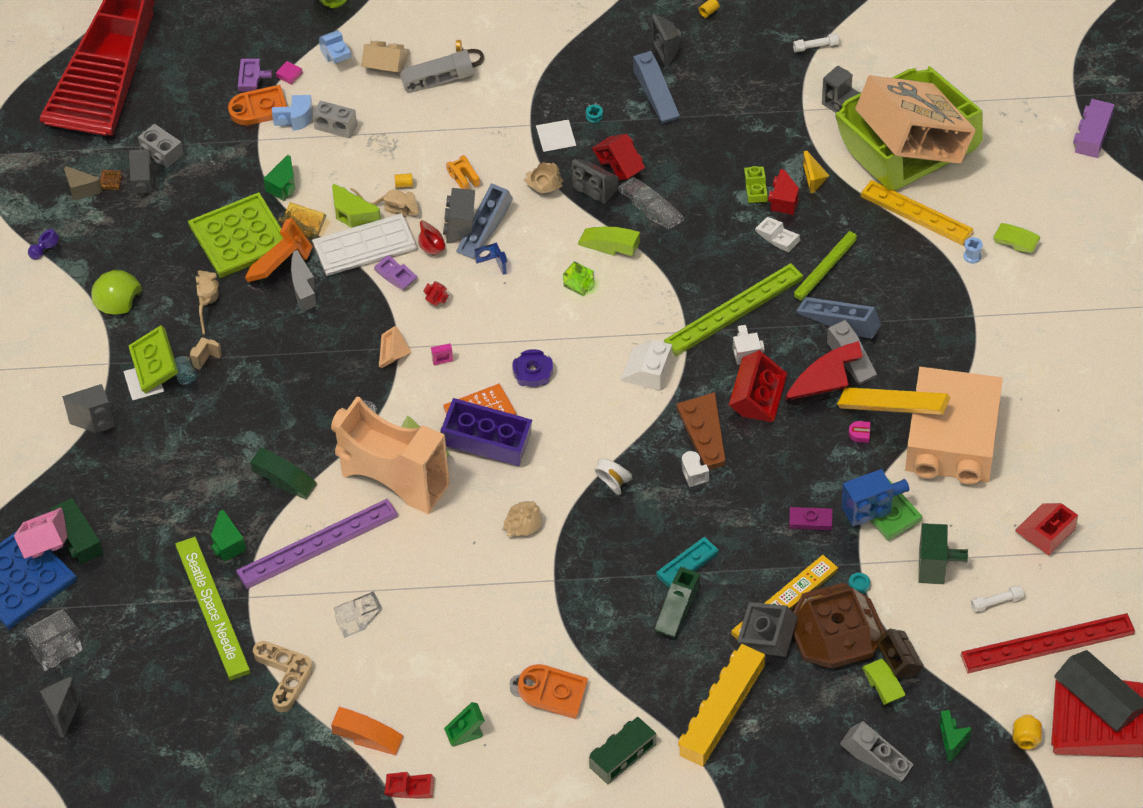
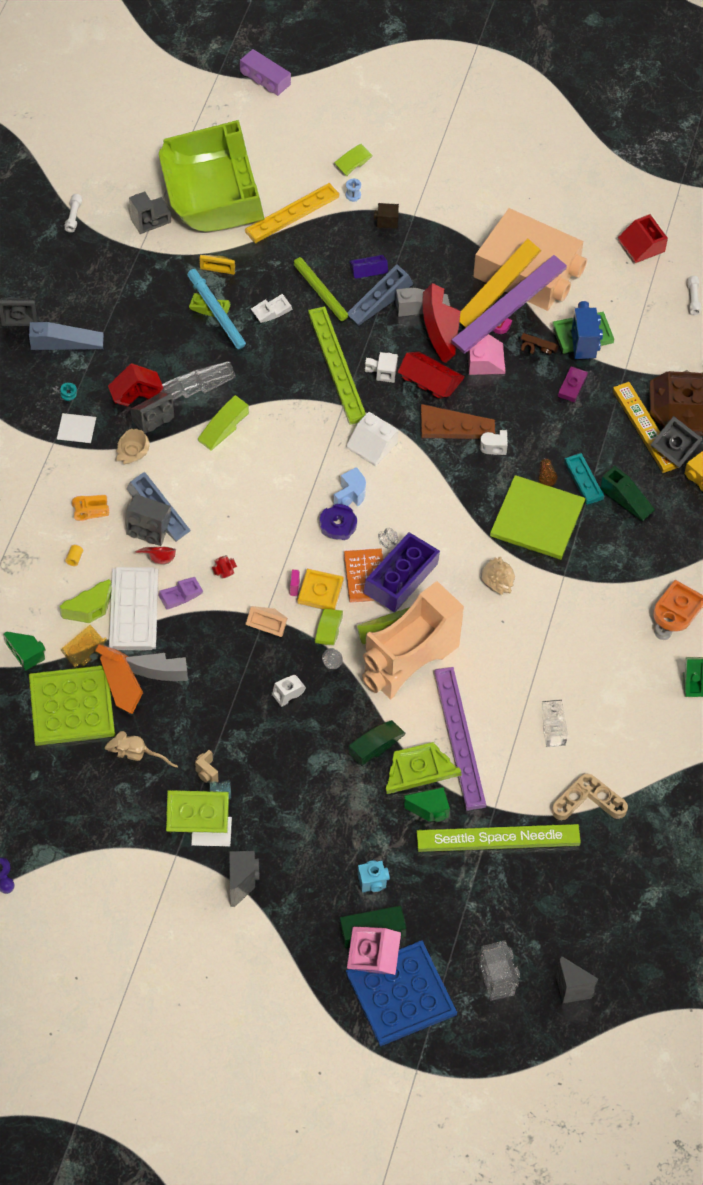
camera: 75 degrees left, 5 degrees up
(115, 292) = (95, 826): lime cylinder -> none
(128, 513) = (373, 876): none -> medium azure brick
(267, 518) = (419, 767): none -> lime wing
(316, 387) = (288, 689): none -> white leg
(366, 731) = (674, 752): orange slope -> none
(396, 202) = (100, 565): tan animal -> none
(404, 395) = (329, 627): none -> lime slope
(444, 378) = (320, 589): none -> yellow plate
(495, 252) = (204, 508): clear blue bracket -> none
(529, 411) = (388, 538): none -> clear wheel
(576, 369) = (353, 488): none -> light blue brick
(578, 278) = (256, 458): clear neon green brick -> none
(612, 474) = (483, 498): white piece -> none
(617, 535) = (537, 517): none -> lime tile
(674, 526) = (547, 473): none -> clear orange cone
(762, 166) = (211, 301): none -> medium azure axle
(785, 194) = (233, 288): red slope -> none
(807, 427) = (486, 357): none -> bright pink slope
(846, 466) = (546, 346): none -> reddish brown plate
(860, 582) = (646, 374): teal tile -> none
(867, 415) = (509, 304): none -> medium lavender tile
(879, 297) = (369, 266): none -> dark purple slope
(915, 119) = (222, 165): light nougat brick -> none
(935, 553) = (647, 314): dark green brick -> none
(953, 289) = (387, 215): none -> dark brown brick

